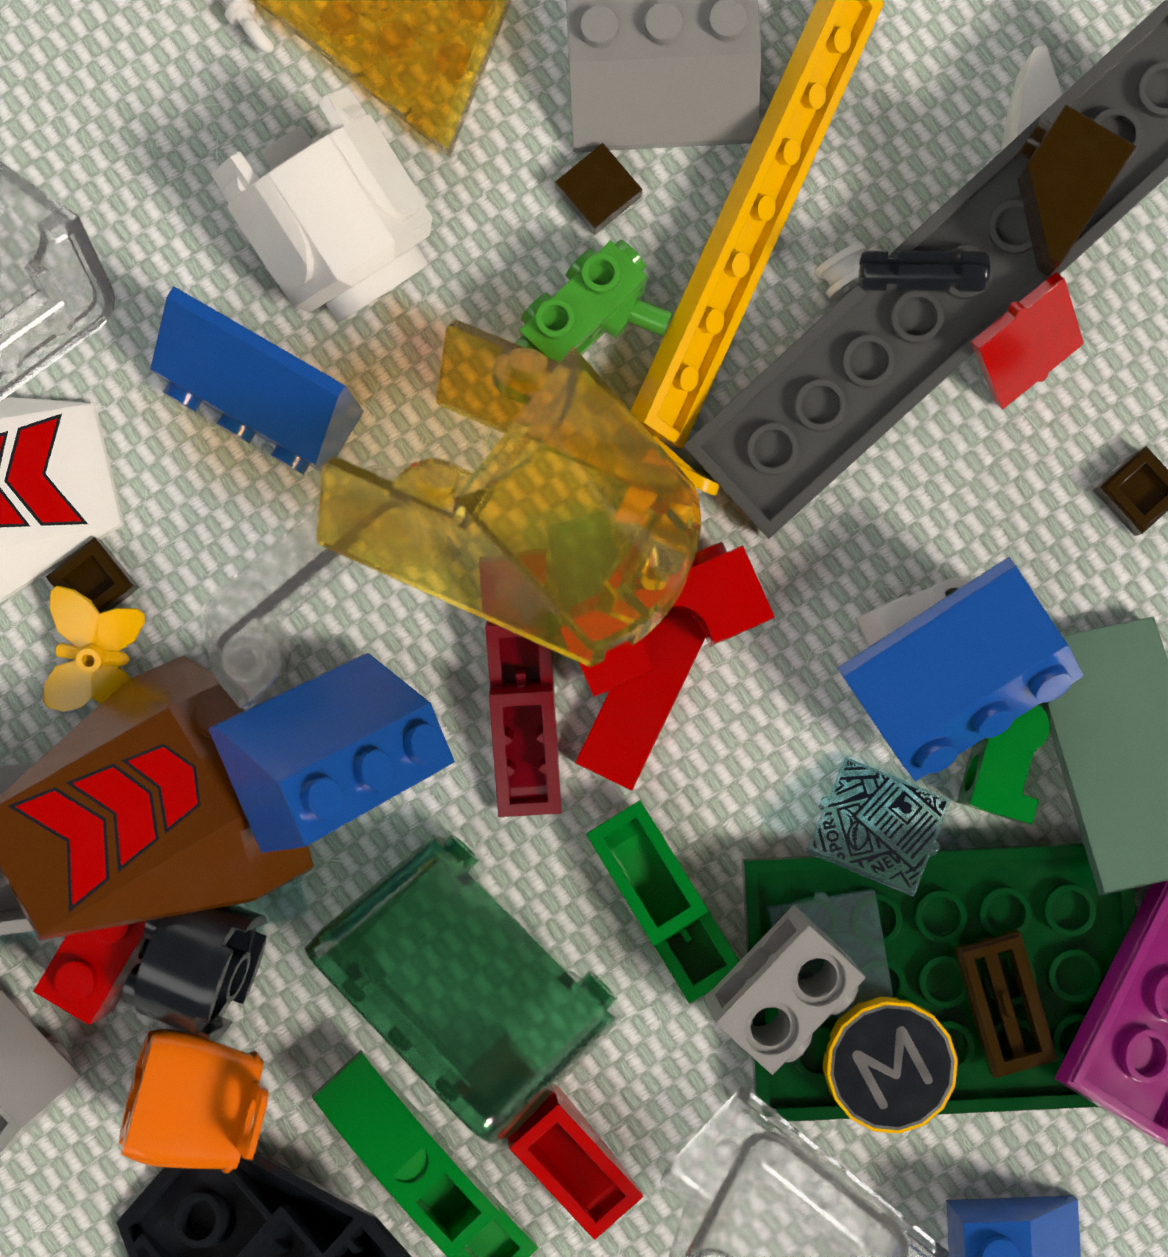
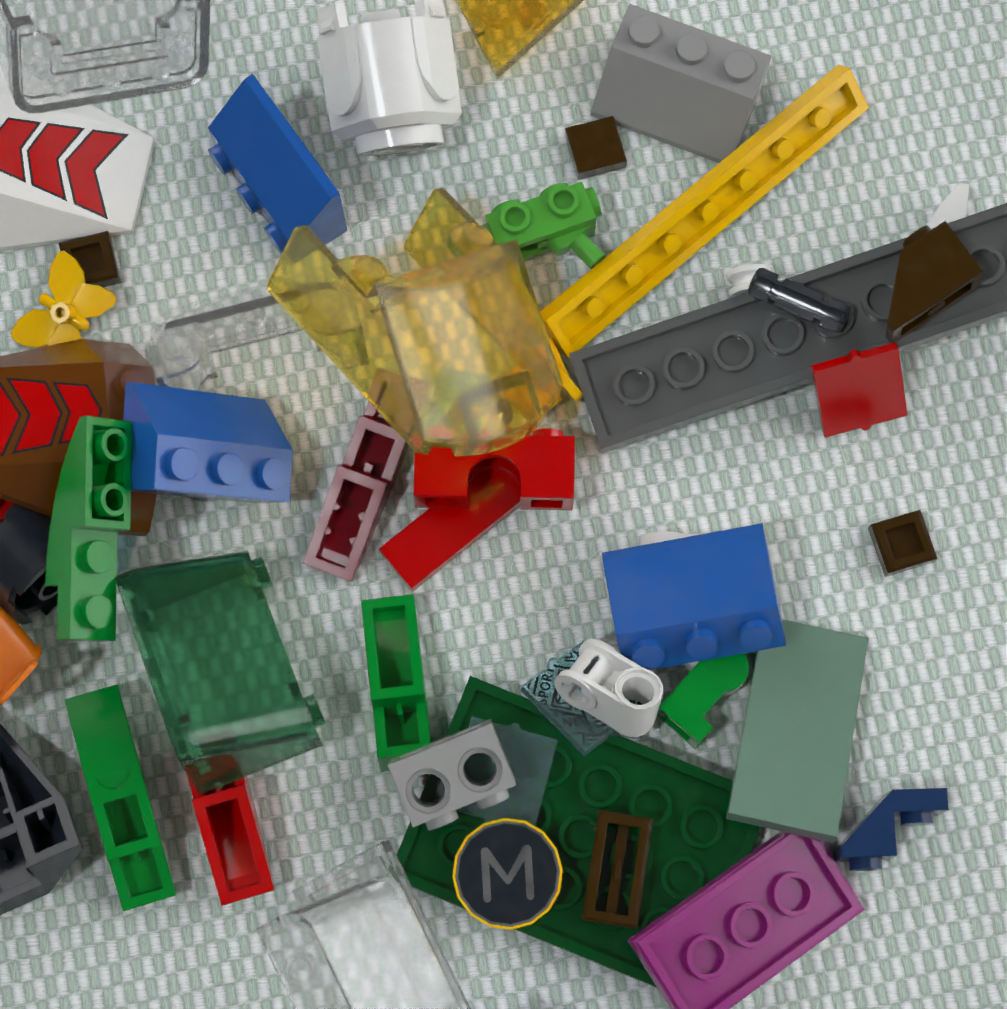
camera: 20 degrees right, 10 degrees down
(244, 917) = (85, 519): none -> green slope
(905, 807) = (608, 686): none -> white piece

